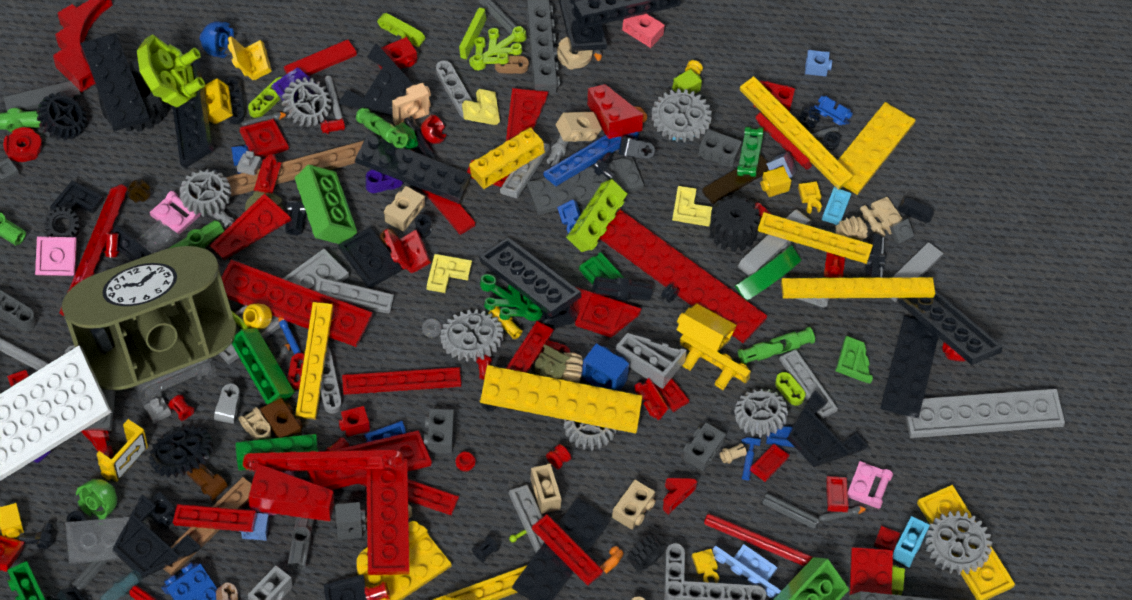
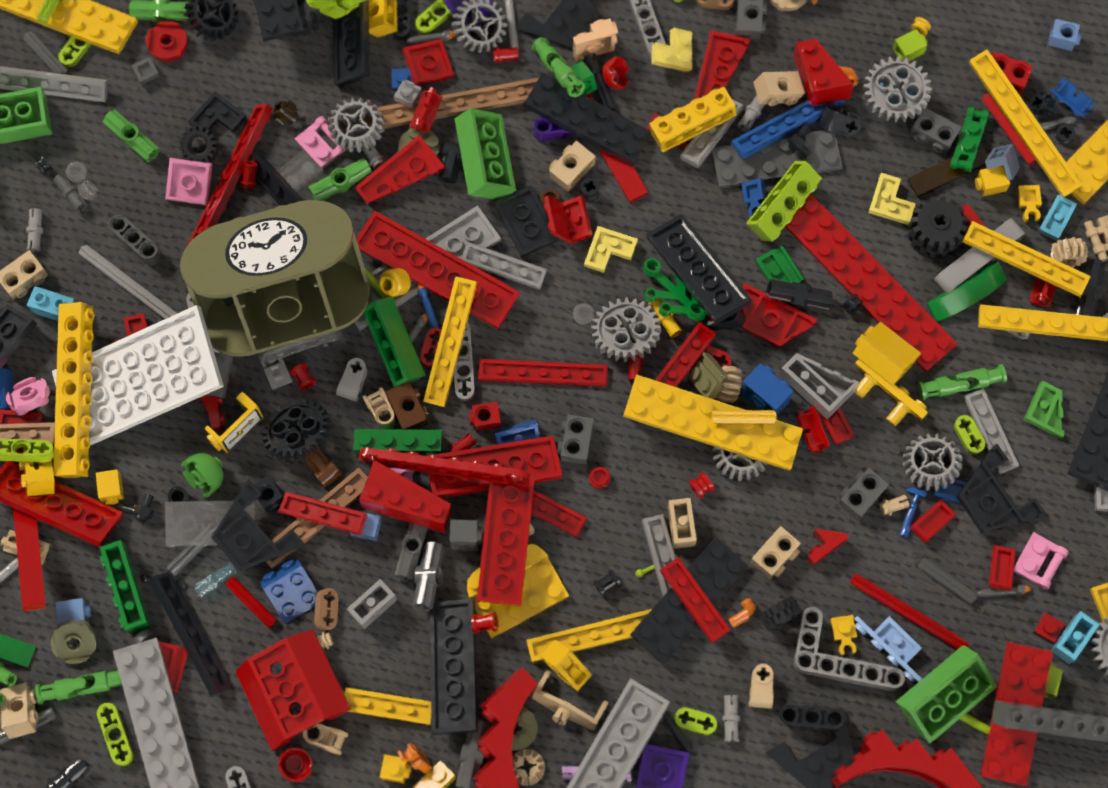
camera: 15 degrees right, 15 degrees up
(319, 561) = (428, 576): none -> dark grey piece
(588, 388) = (743, 416): none -> yellow axle

